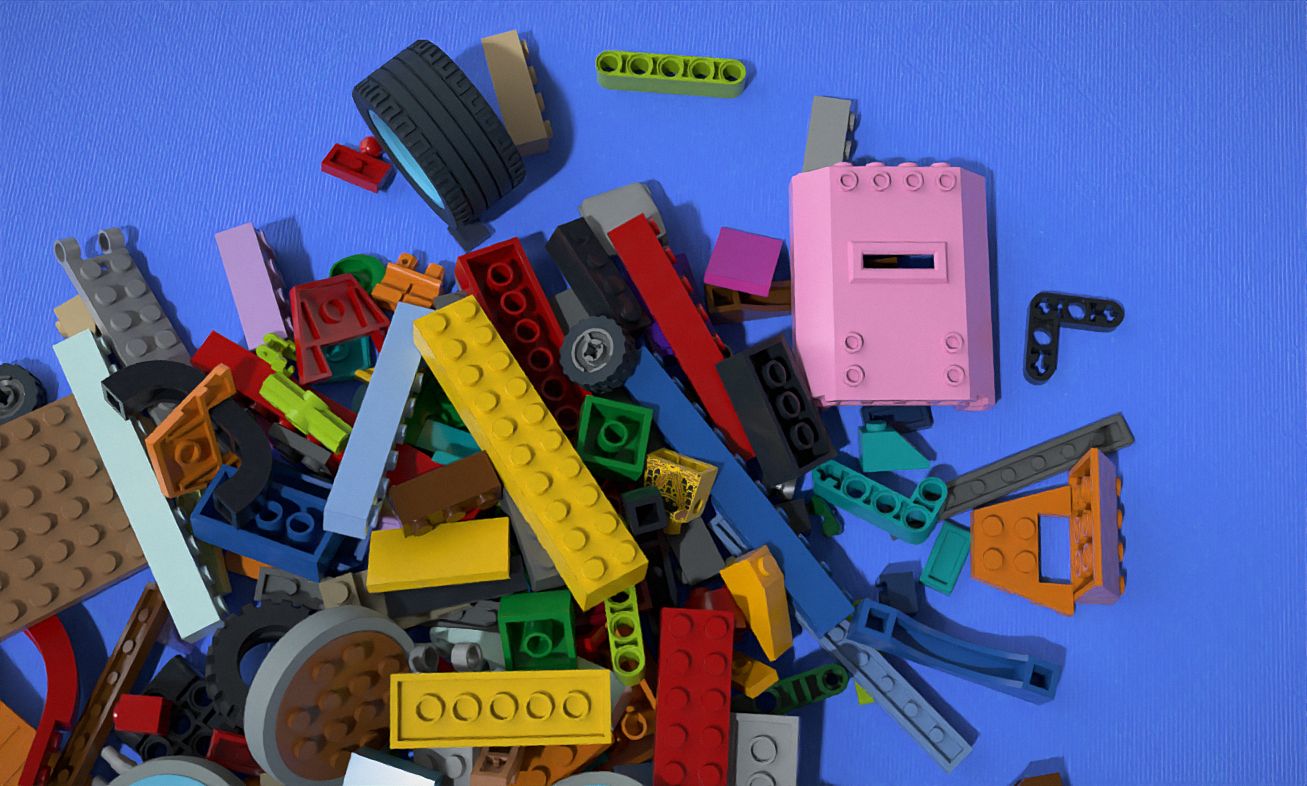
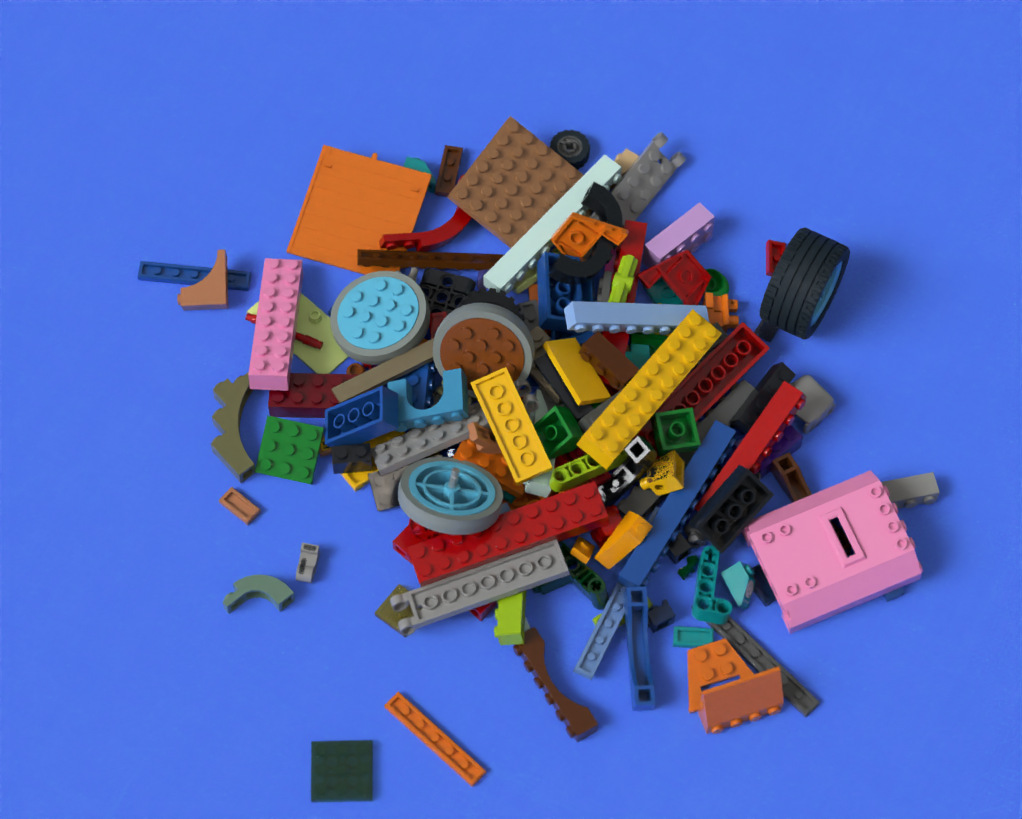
camera: 65 degrees right, 10 degrees down
(142, 714) = (439, 276): red brick -> none
(273, 353) = (644, 256): lime piece -> none
(515, 92) = (859, 320): tan brick -> none
(614, 355) = (719, 408): black wheel -> none
(681, 84) = (910, 403): lime beam -> none
(743, 262) = (811, 468): dark pink tile -> none
(1049, 325) = (856, 649): black beam -> none

